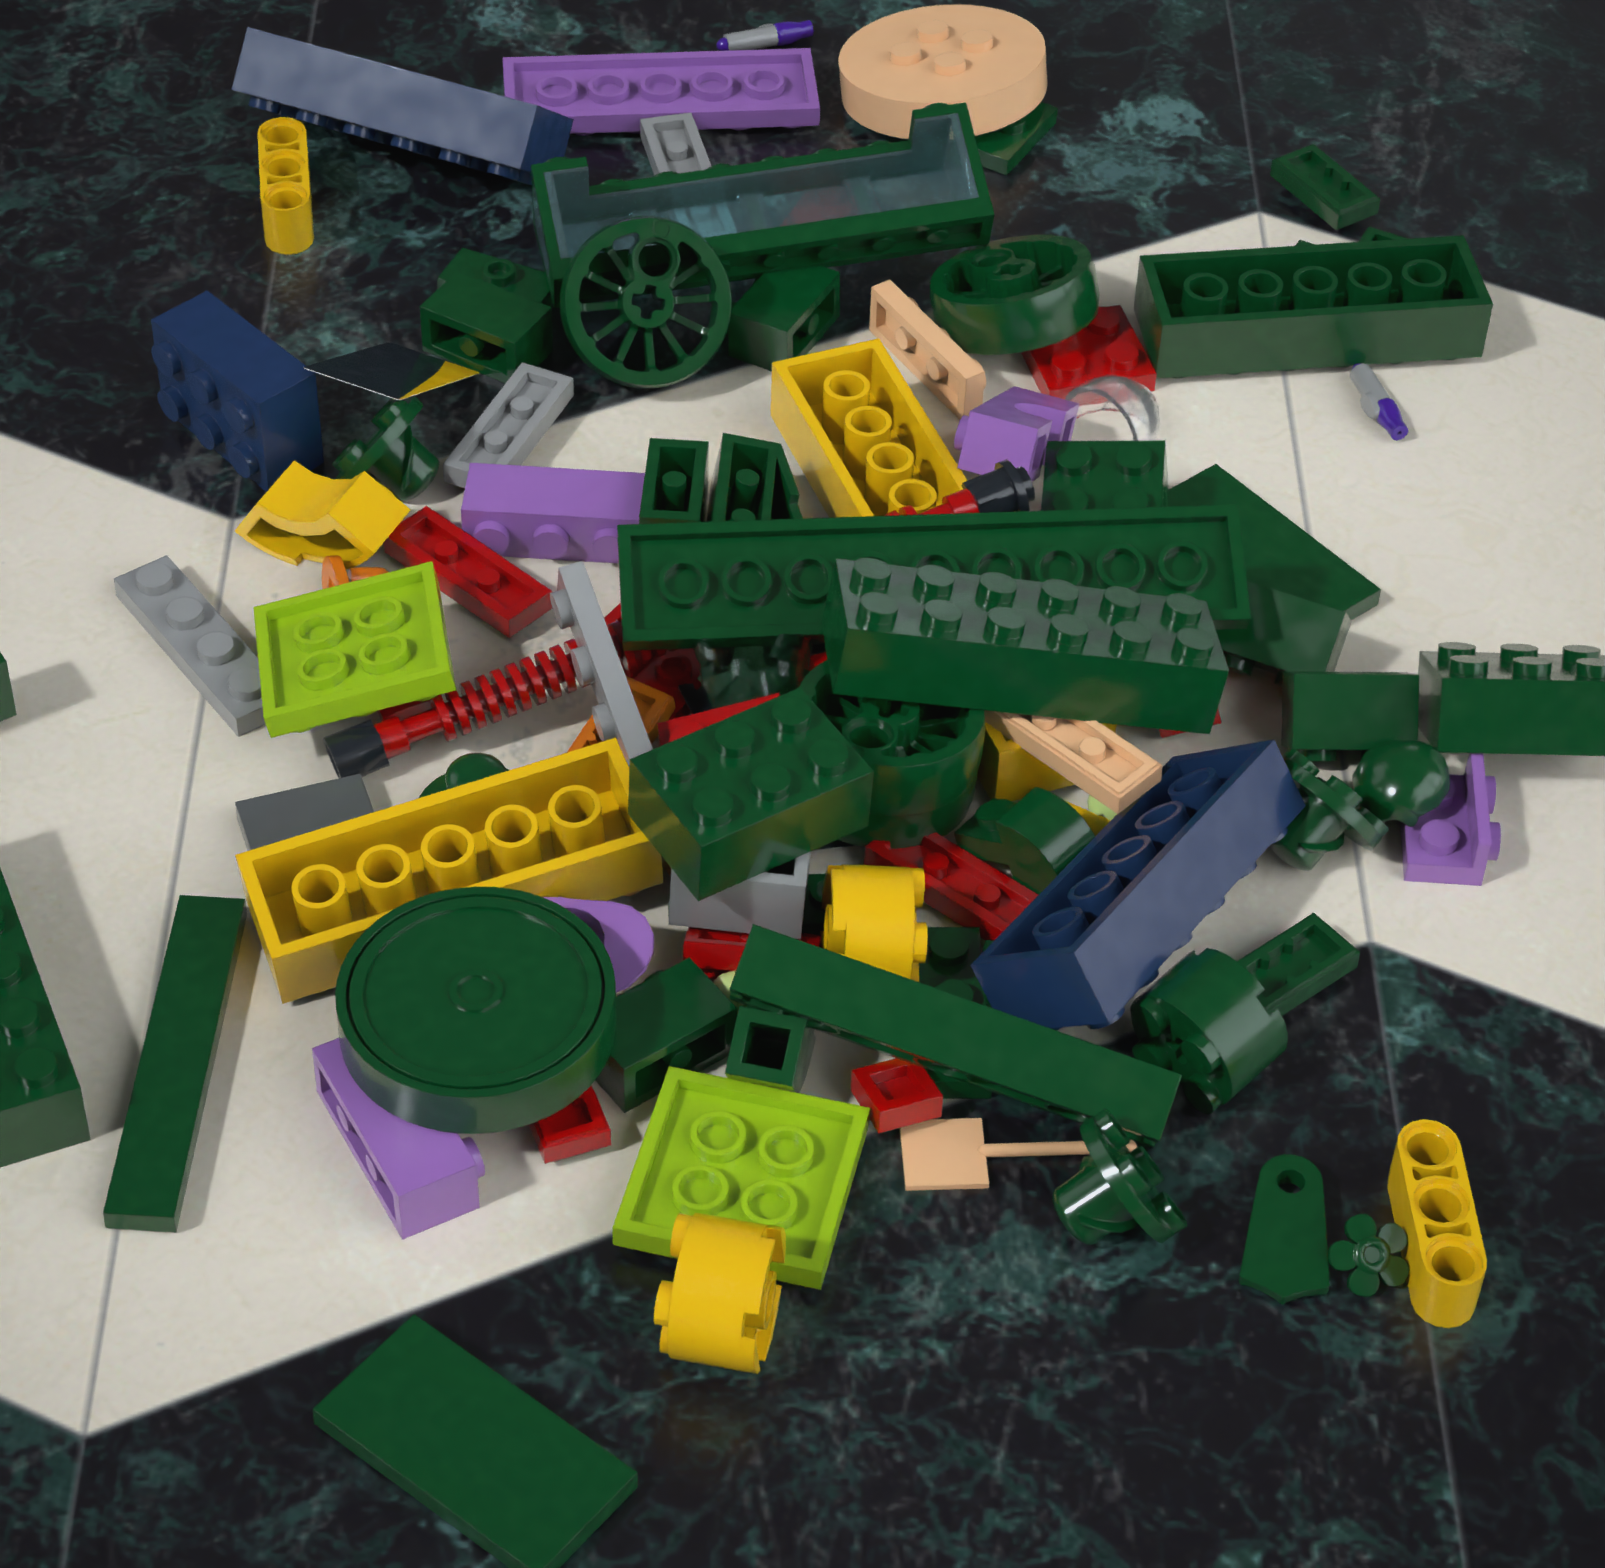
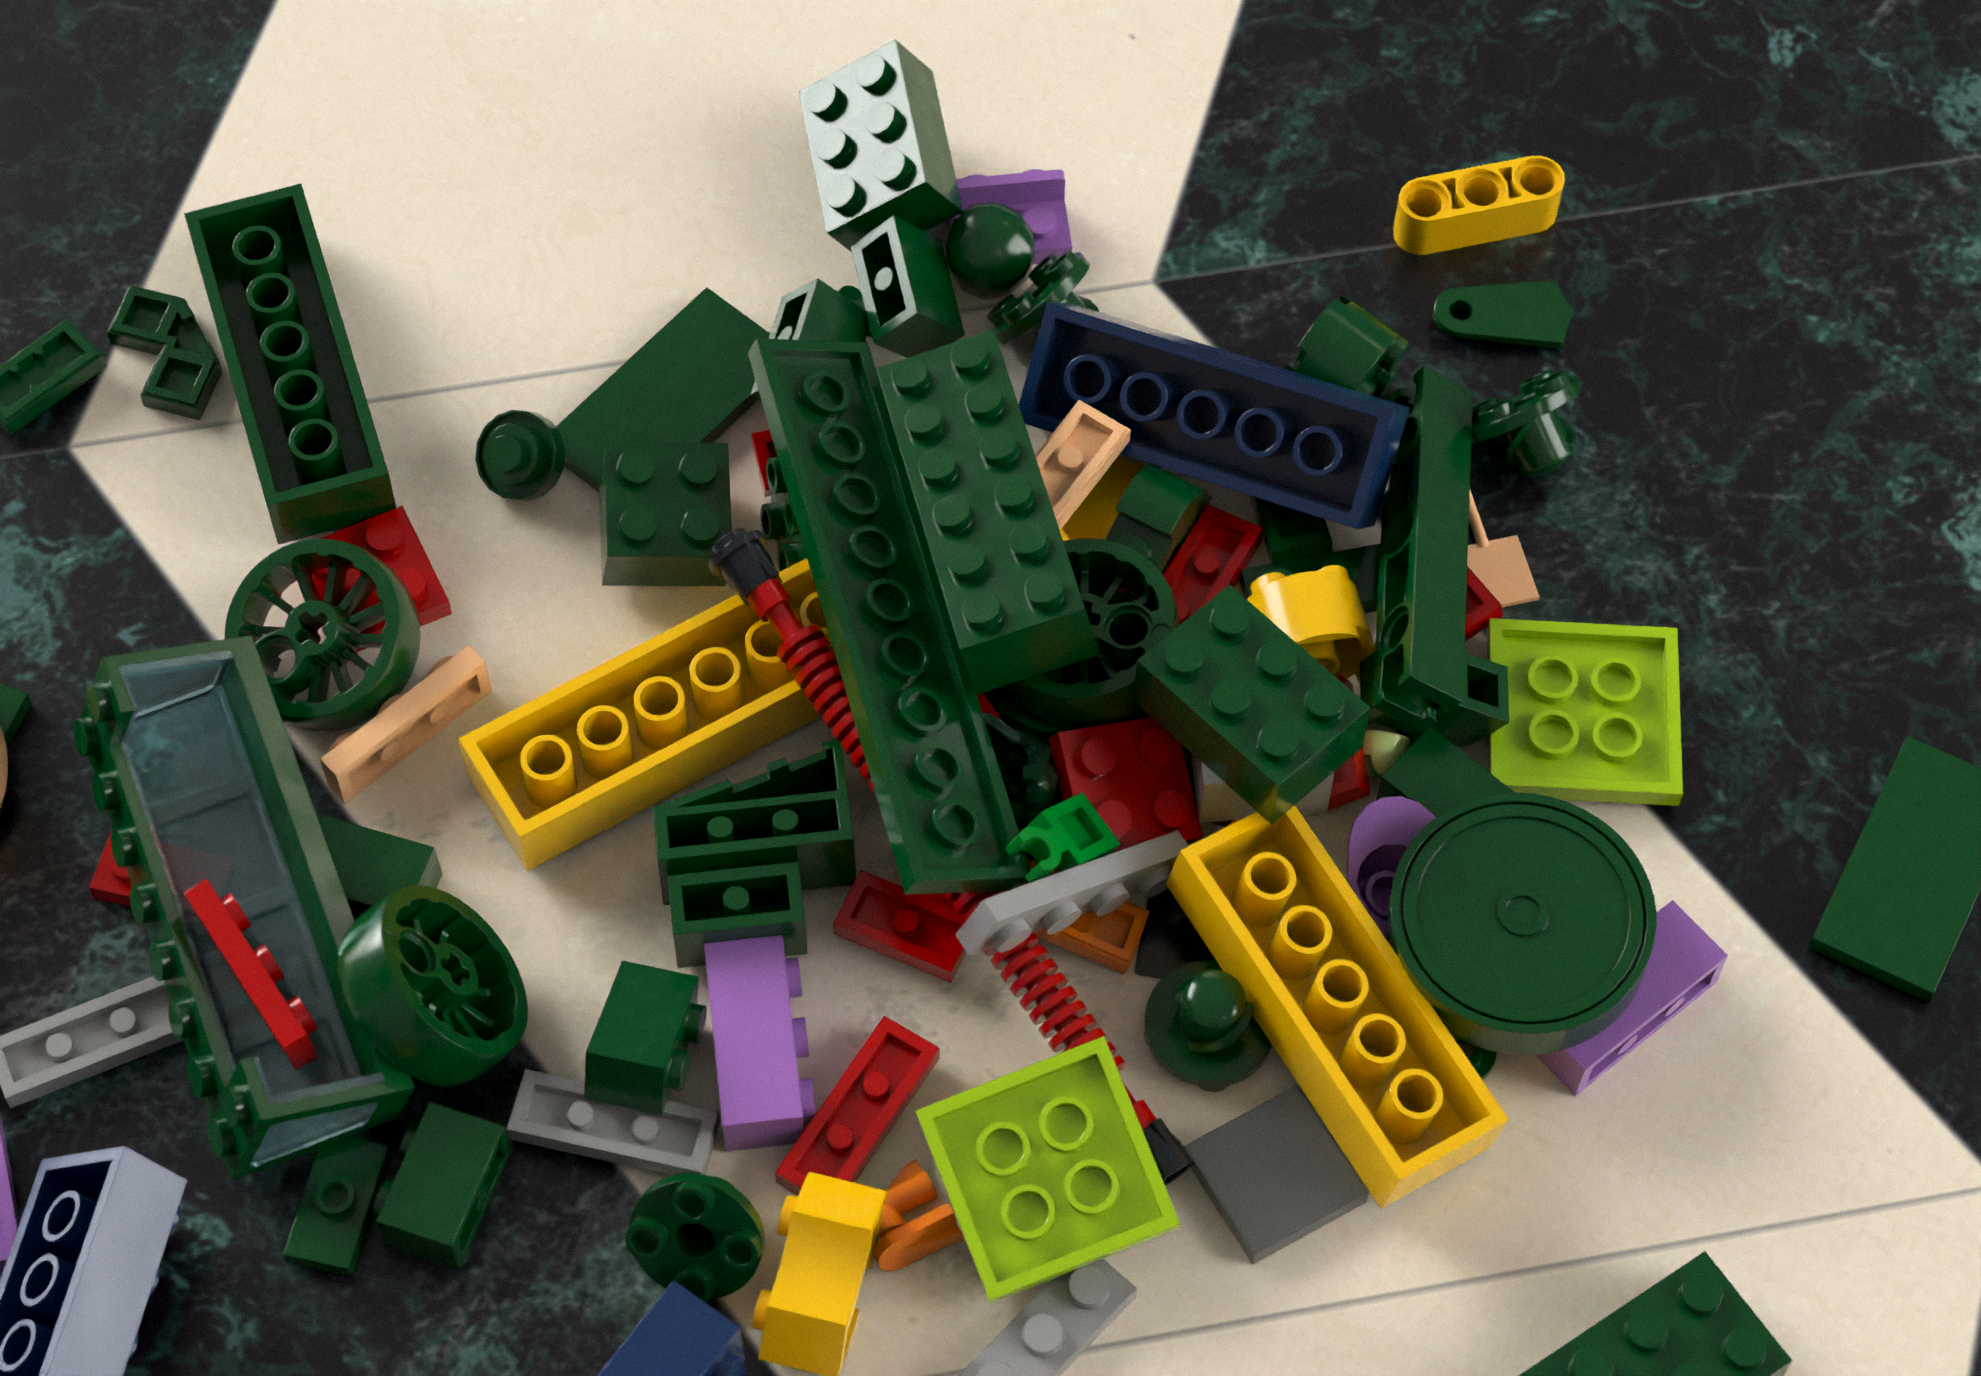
camera: 100 degrees left, 15 degrees up
(175, 1065) = (1584, 1220): dark green tile -> none
(392, 370) = (586, 1240): black sticker -> none
(571, 427) = (644, 1038): none -> dark green brick
(662, 679) = (1064, 837): none -> green plate
(697, 201) = (255, 972): none -> red plate
(722, 1292) = (1741, 683): yellow brick -> none
(1014, 429) = (545, 604): medium lavender arch -> none
(1120, 395) = (468, 528): clear helmet -> none
(1196, 437) = (520, 455): none -> dark green plate
(1300, 963) = (1217, 319): dark green plate -> none
(1370, 1255) = (1518, 250): dark green plant -> none
(1377, 402) = (405, 311): piece -> none

